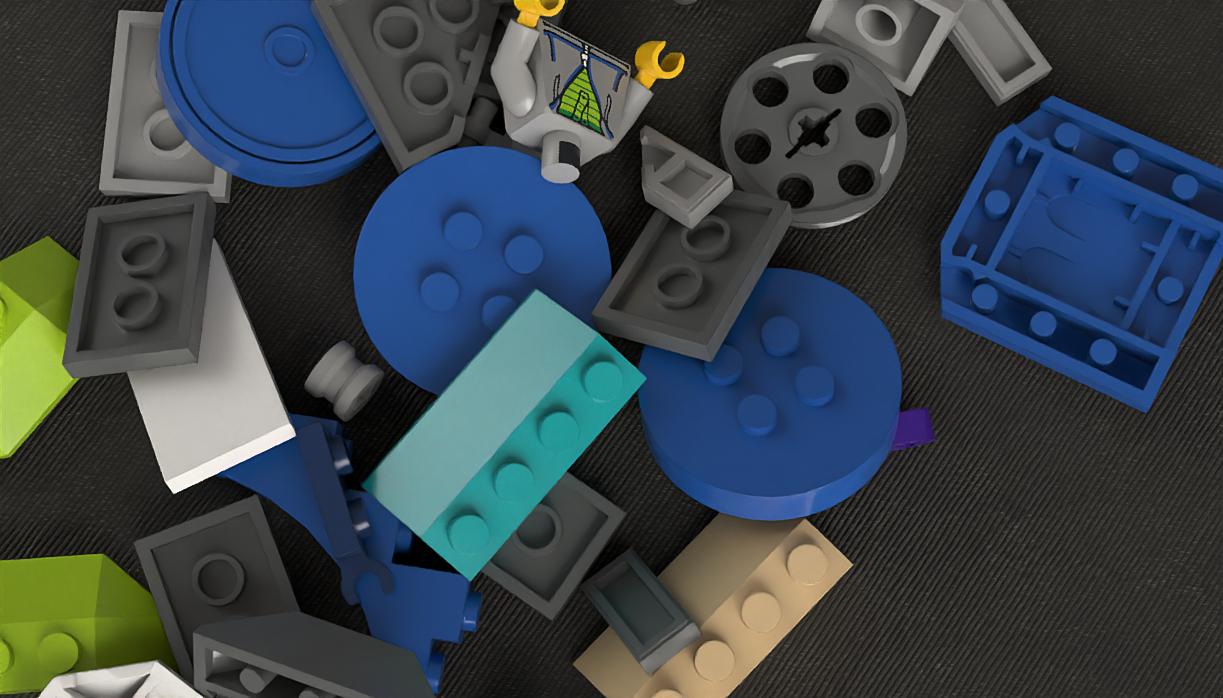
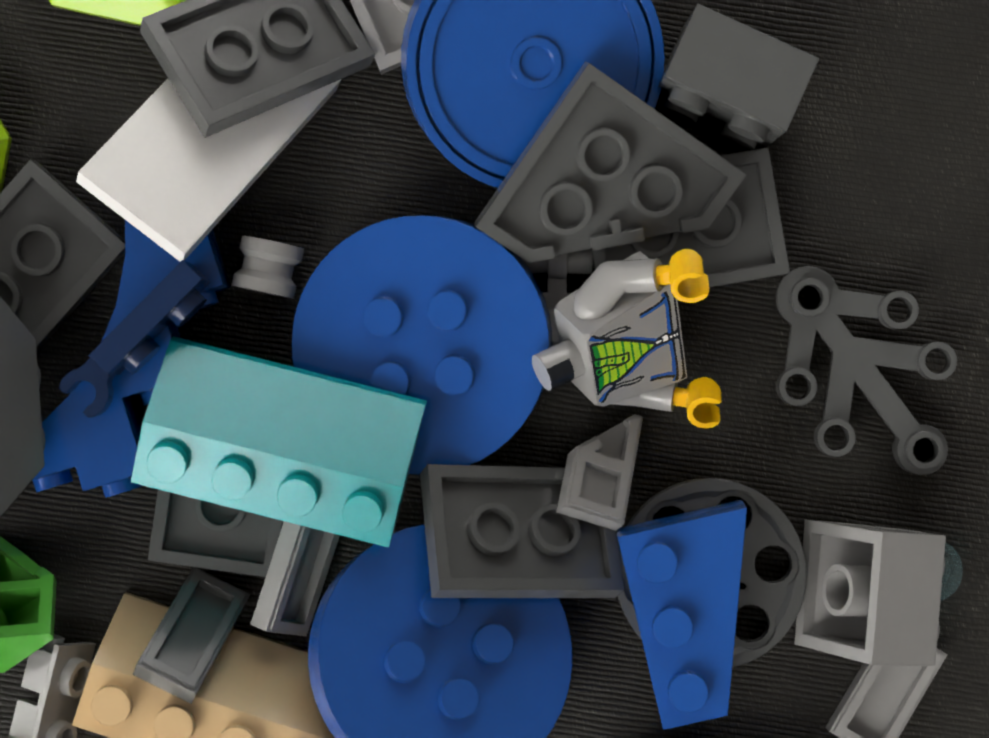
camera: 70 degrees right, 10 degrees up
(632, 490) = (294, 580): none -> light grey tile
(833, 155) = (686, 606): none -> blue wedge

